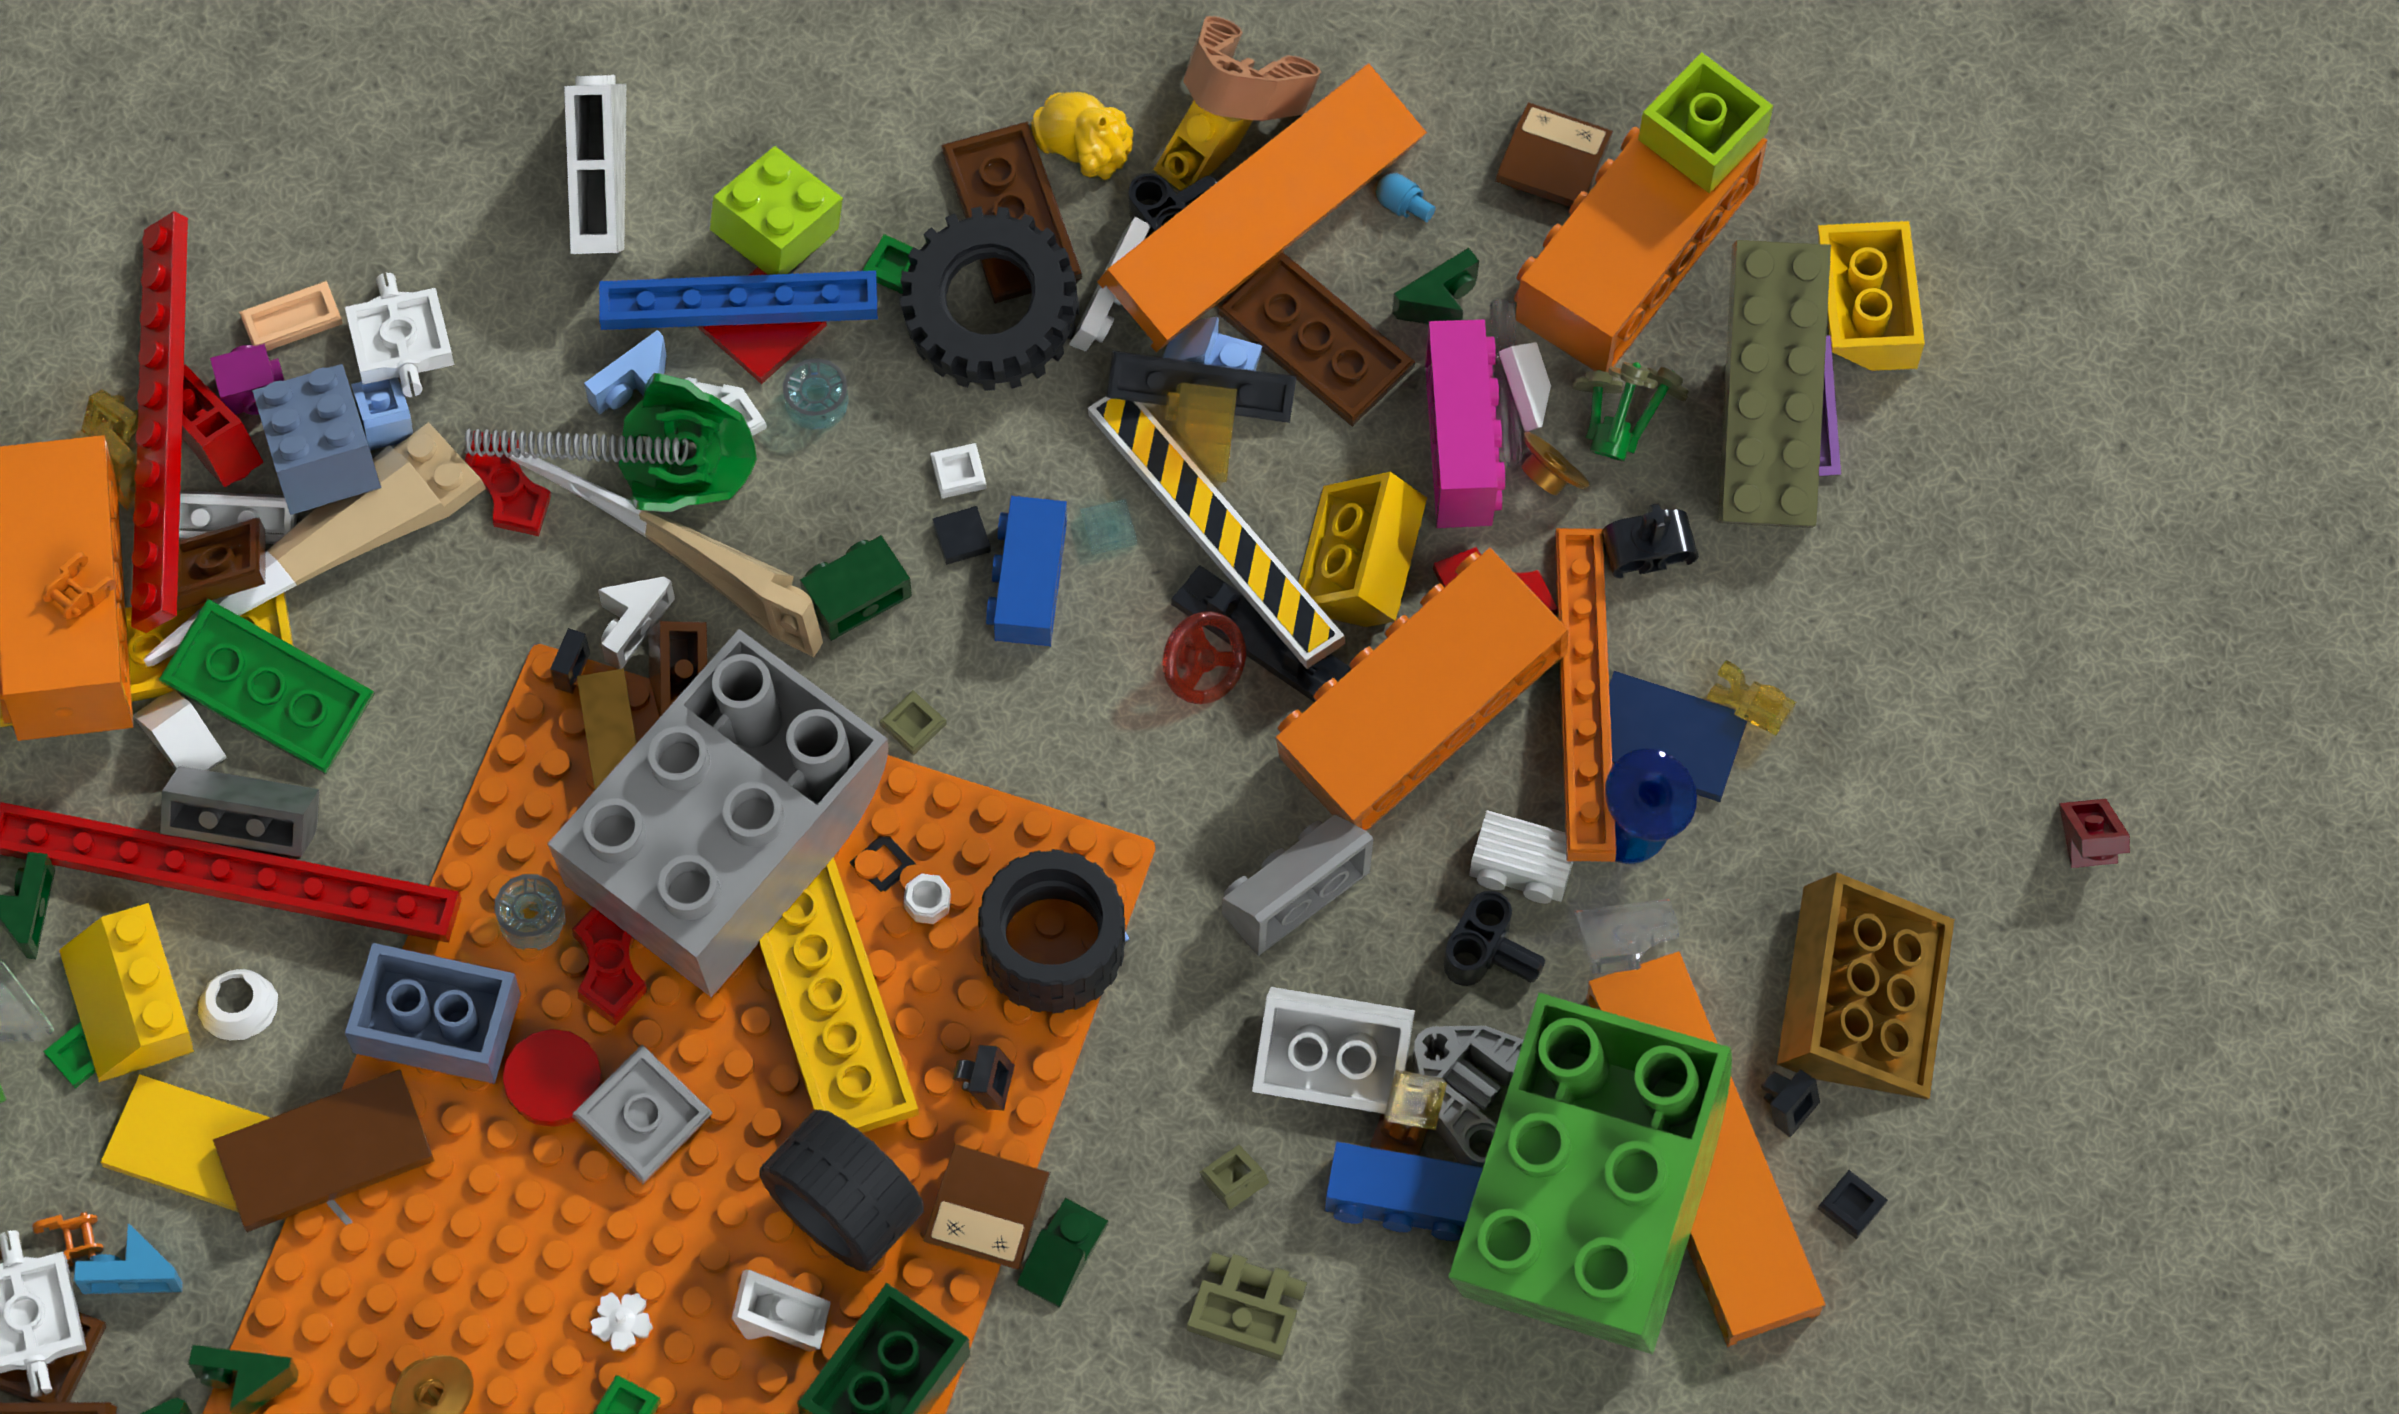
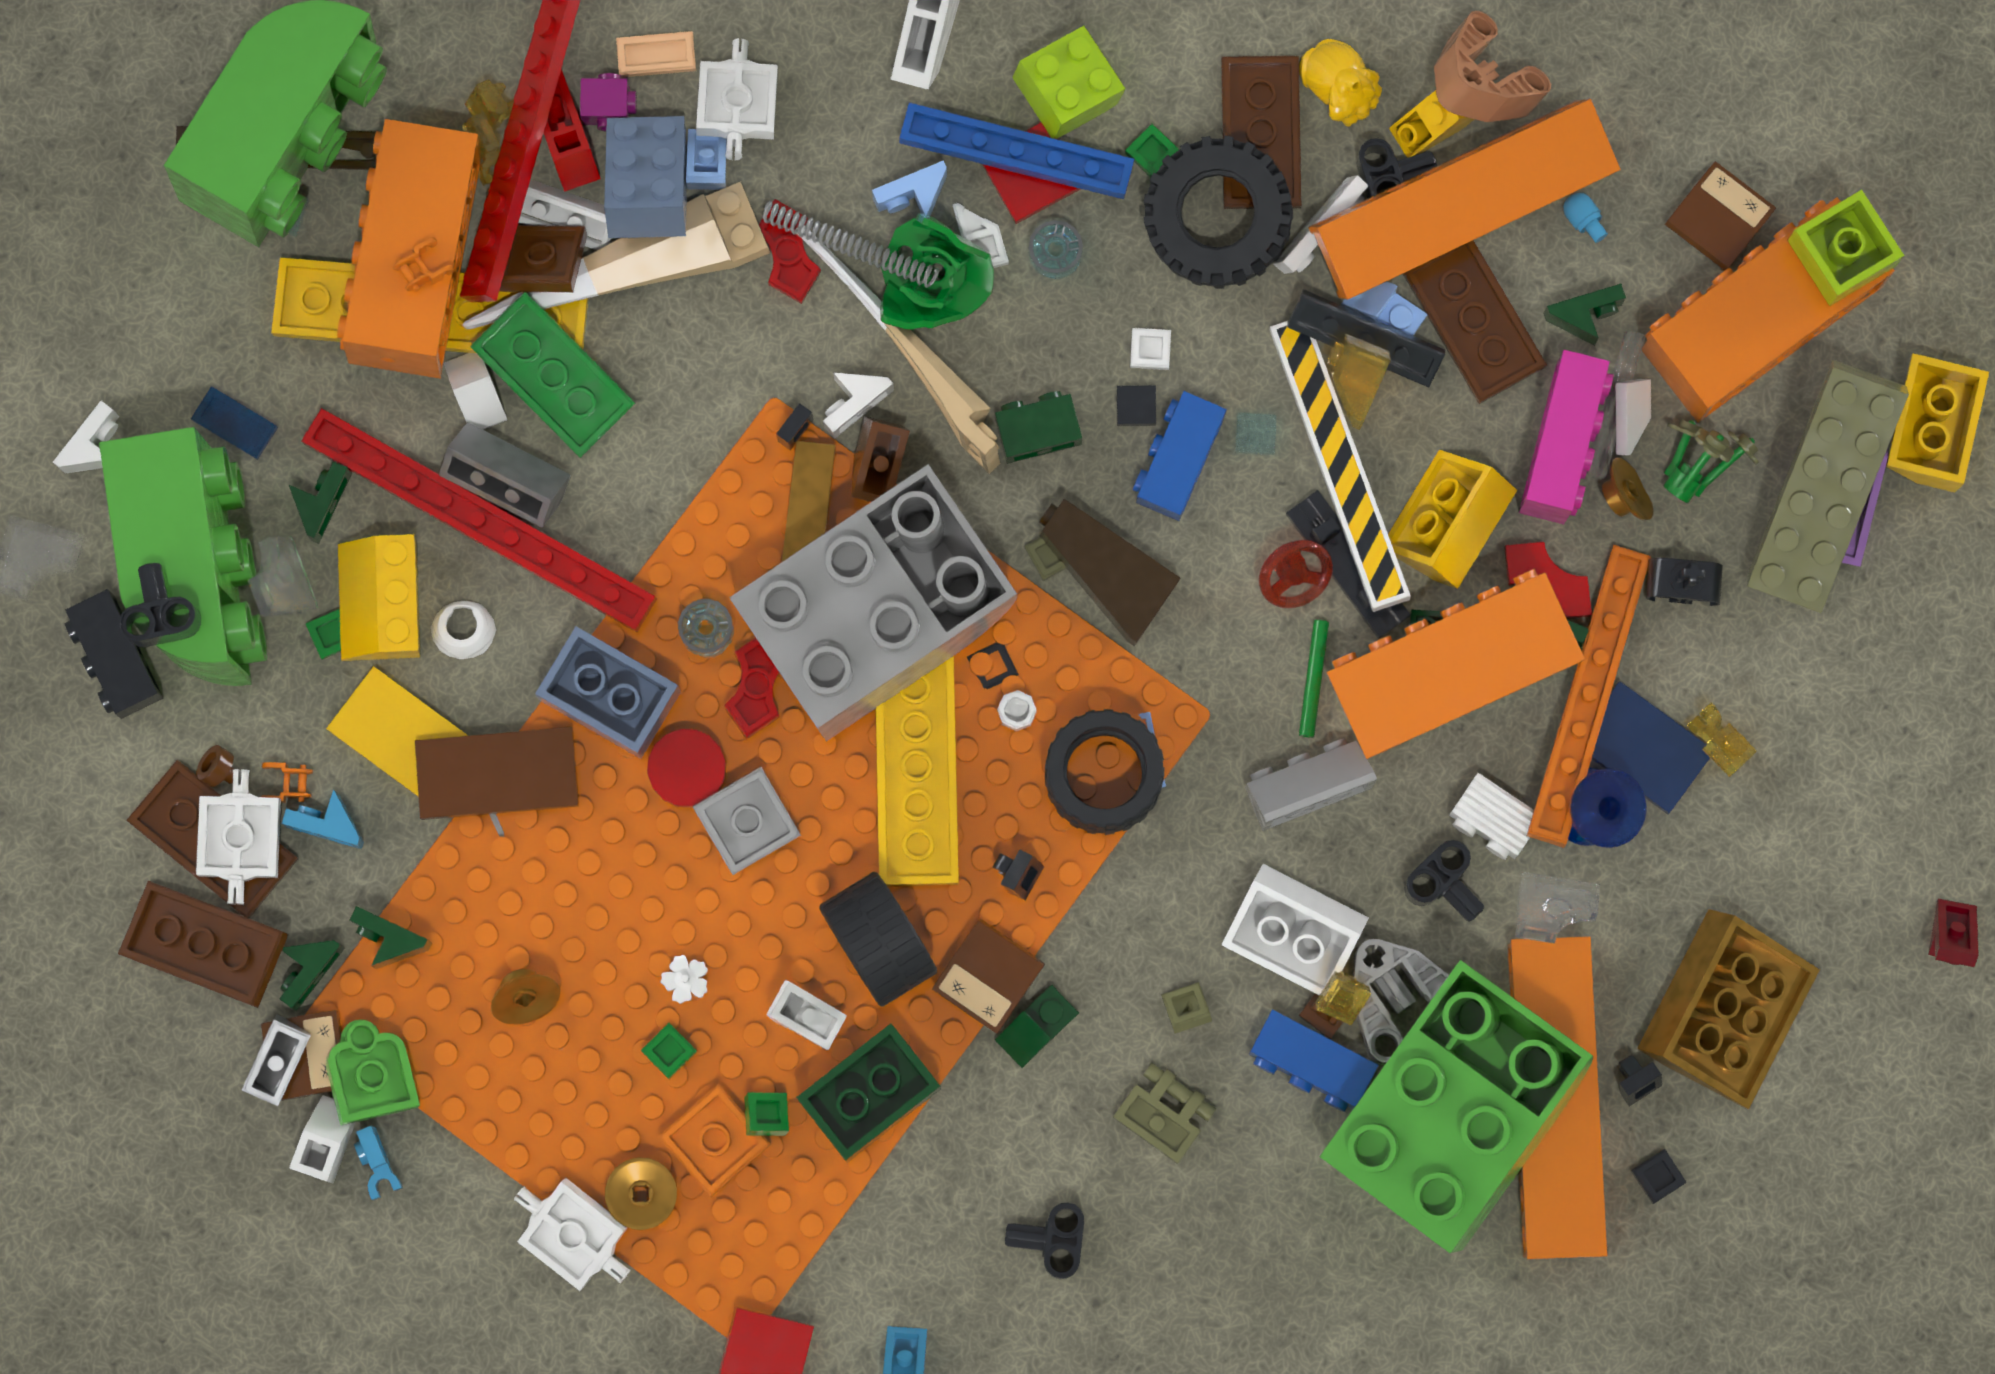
camera: 20 degrees right, 15 degrees up
(985, 714) = (1110, 570): none -> dark brown slope
(1262, 770) = (1313, 678): none -> green piece

